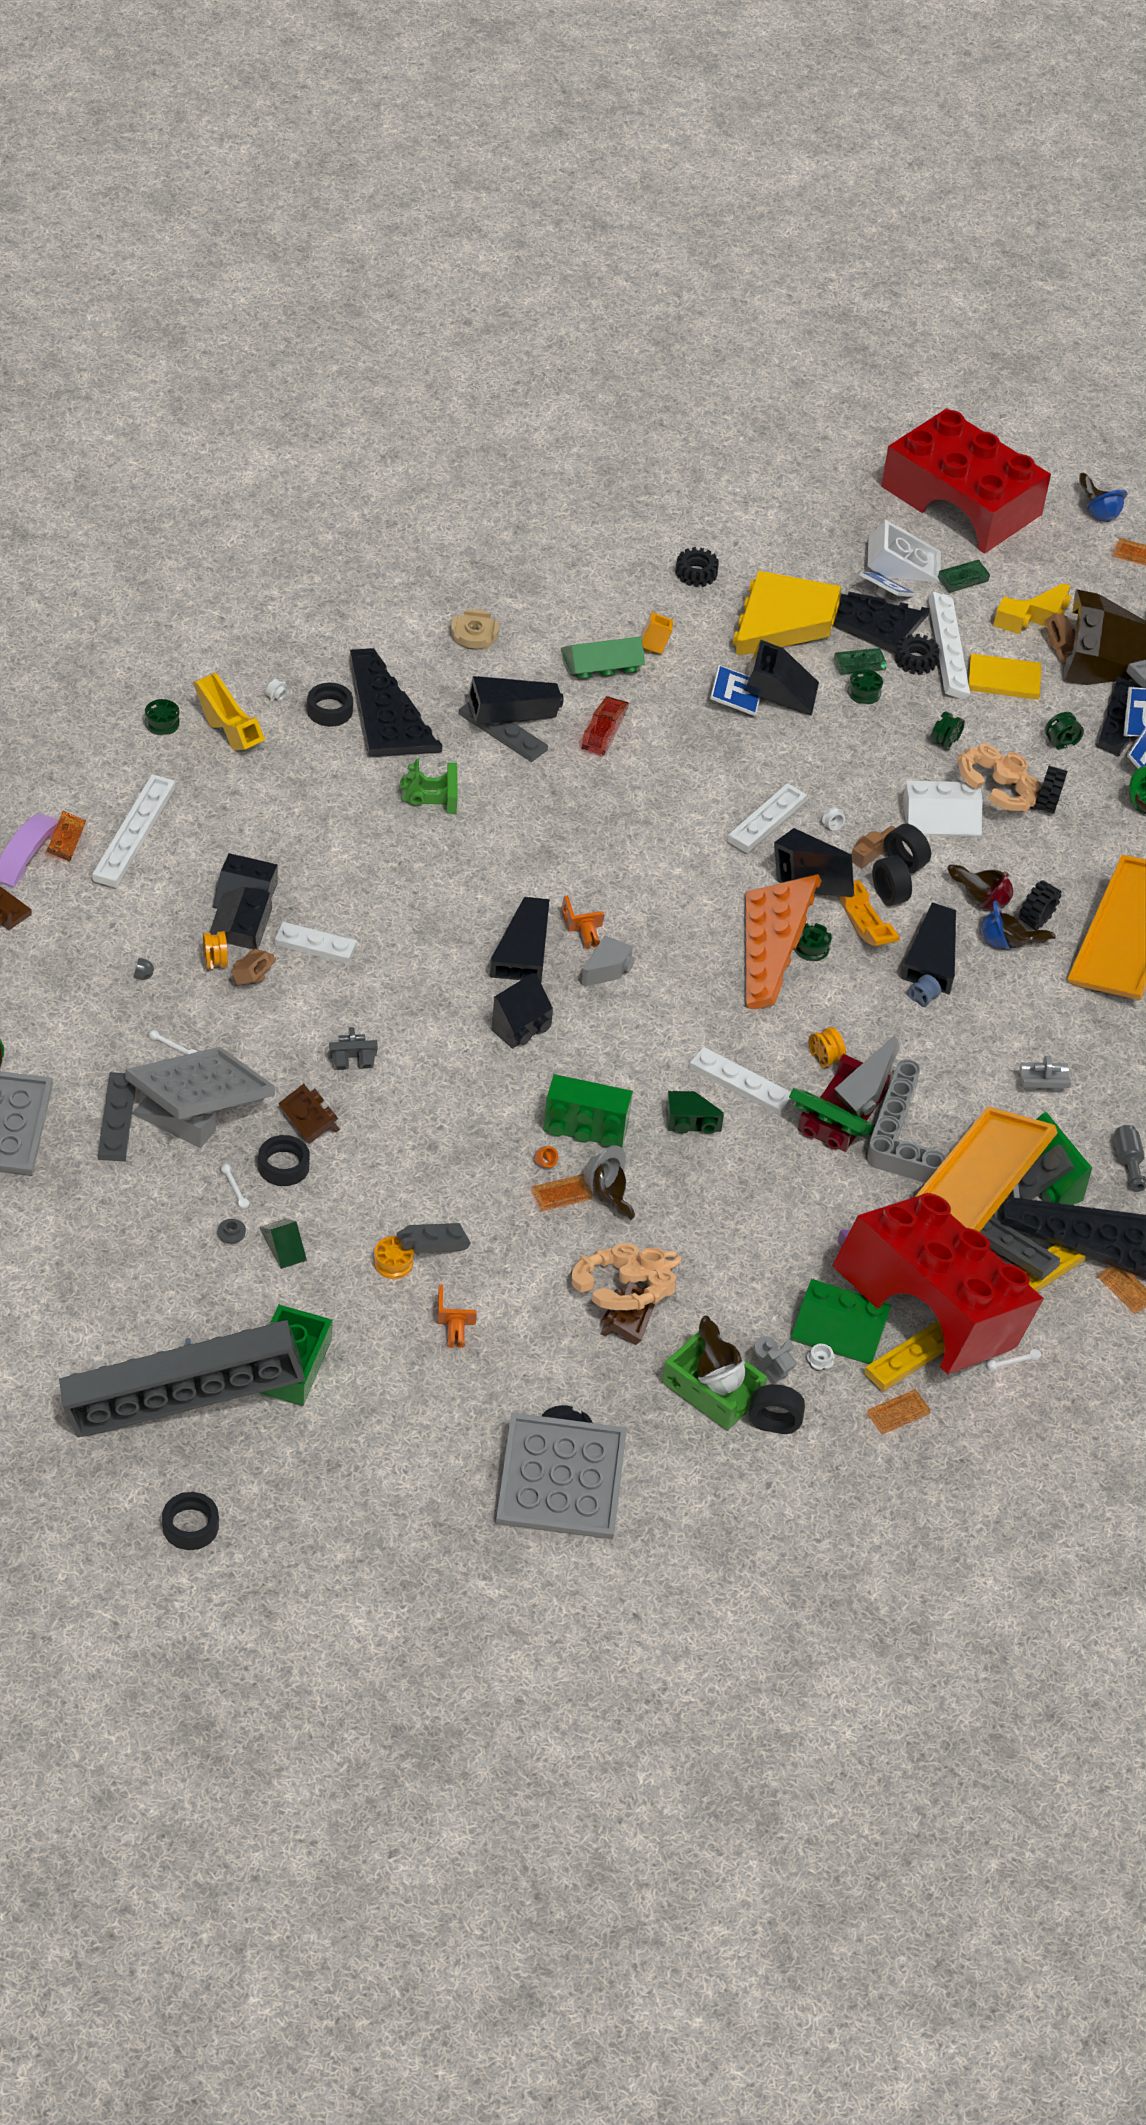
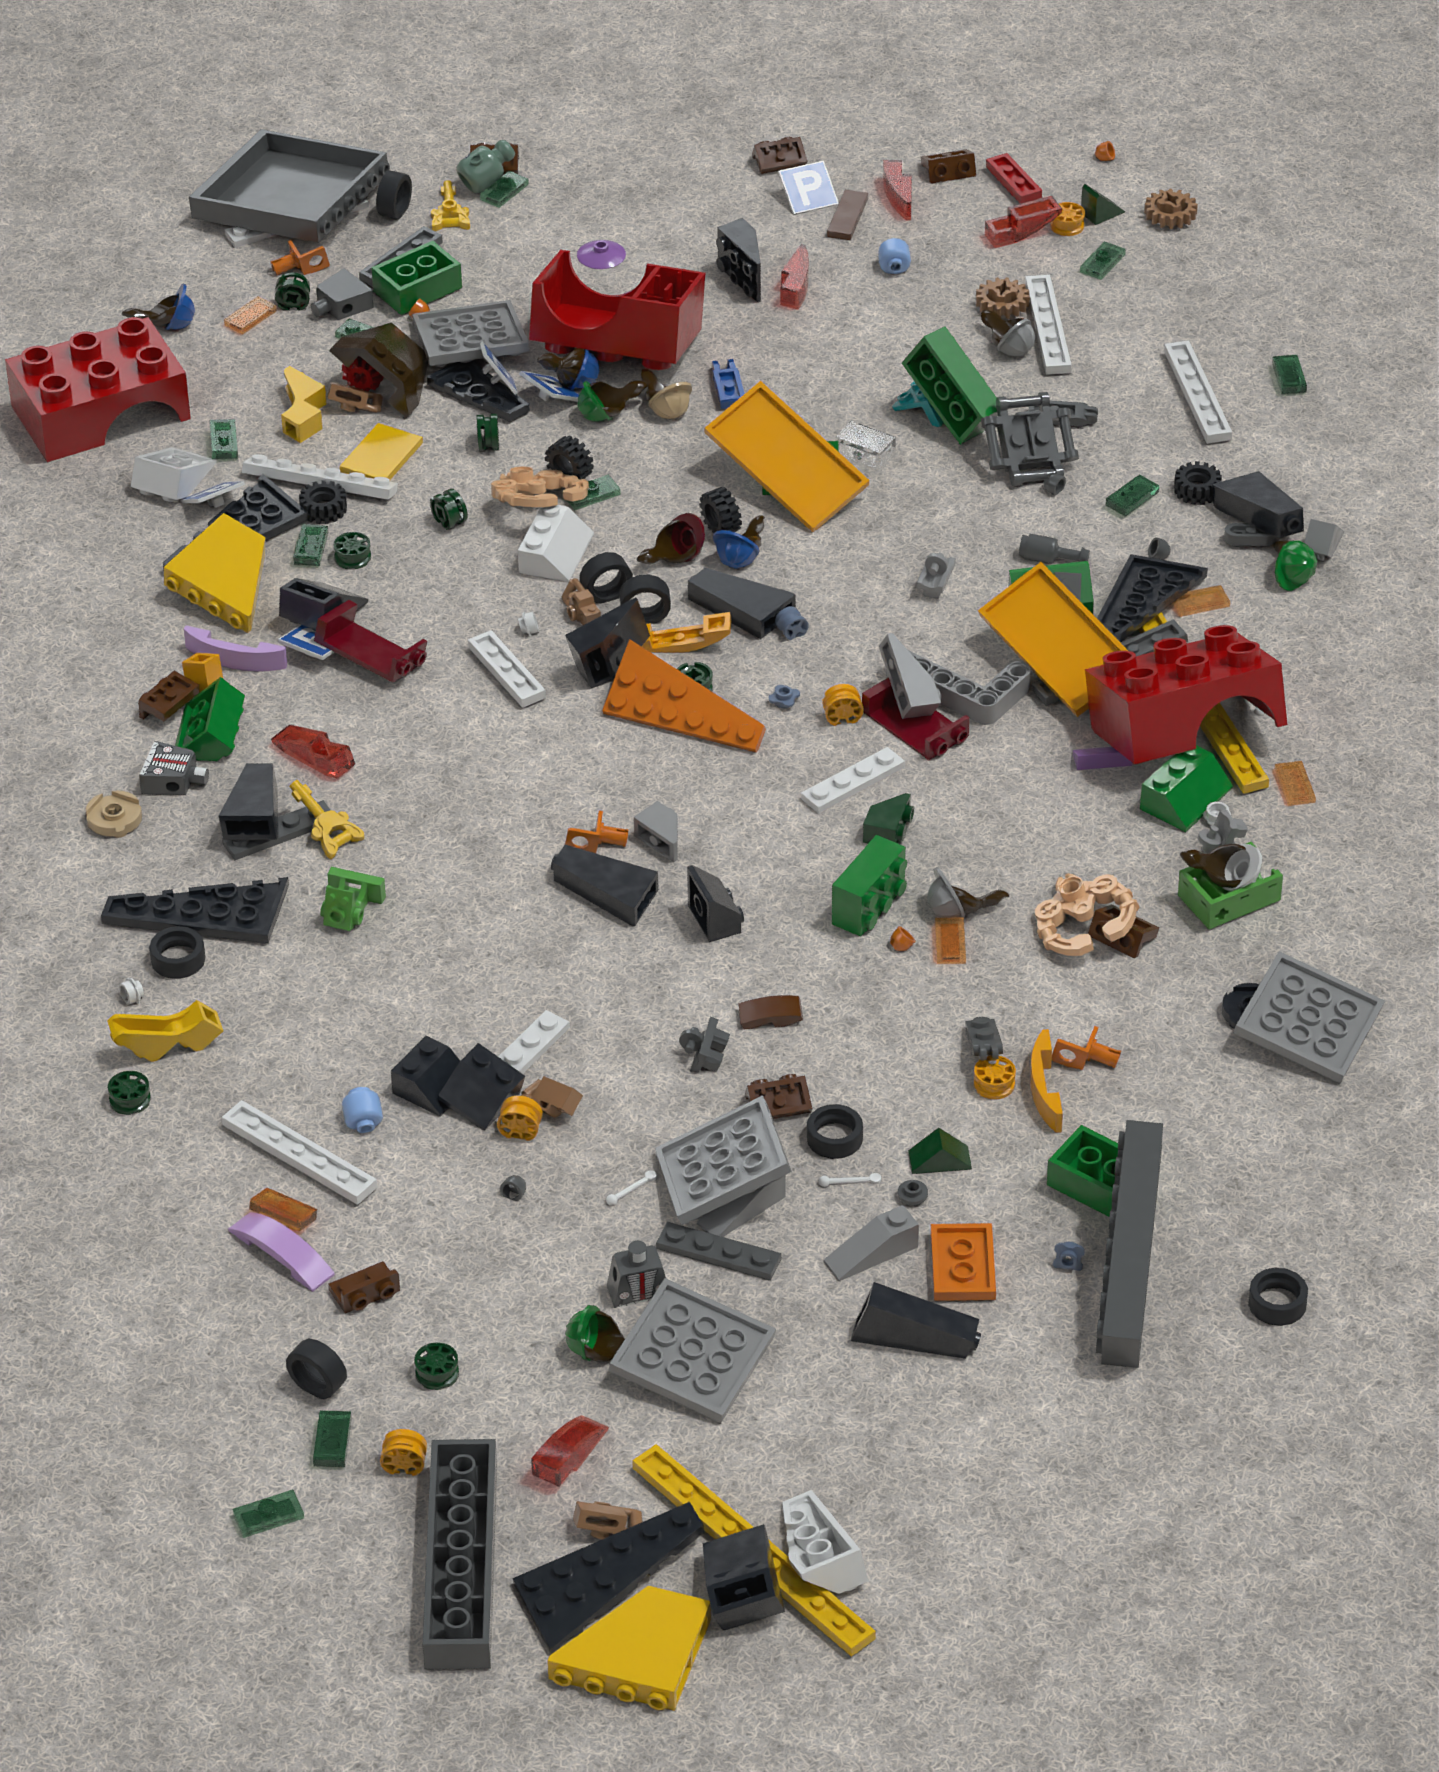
camera: 65 degrees left, 5 degrees down
(52, 1058) = (634, 1274): none -> dark grey torso
(60, 1259) = (914, 1324): none -> black slope
(157, 1216) = (875, 1243): none -> light grey slope
(157, 1282) = (963, 1262): none -> orange plate
(192, 854) = (362, 1109): none -> light blue head
(399, 1288) = (1046, 1103): none -> light orange slope
(416, 1086) = (779, 1009): none -> reddish brown slope
(515, 750) = (327, 822): none -> yellow piece
(536, 645) = (170, 770): none -> dark grey torso
(620, 620) = (167, 696): none -> reddish brown bracket
(697, 558) = (107, 632): black tyre -> none
(698, 662) = (235, 656): none -> lavender slope
(745, 720) = (343, 636): none -> dark red panel
(781, 1397) = (1281, 850): black tyre -> none
(829, 1013) = (784, 696): none -> sand blue plate
(831, 1113) = (936, 720): green plate -> none
(1034, 822) = (599, 490): none -> clear green plate

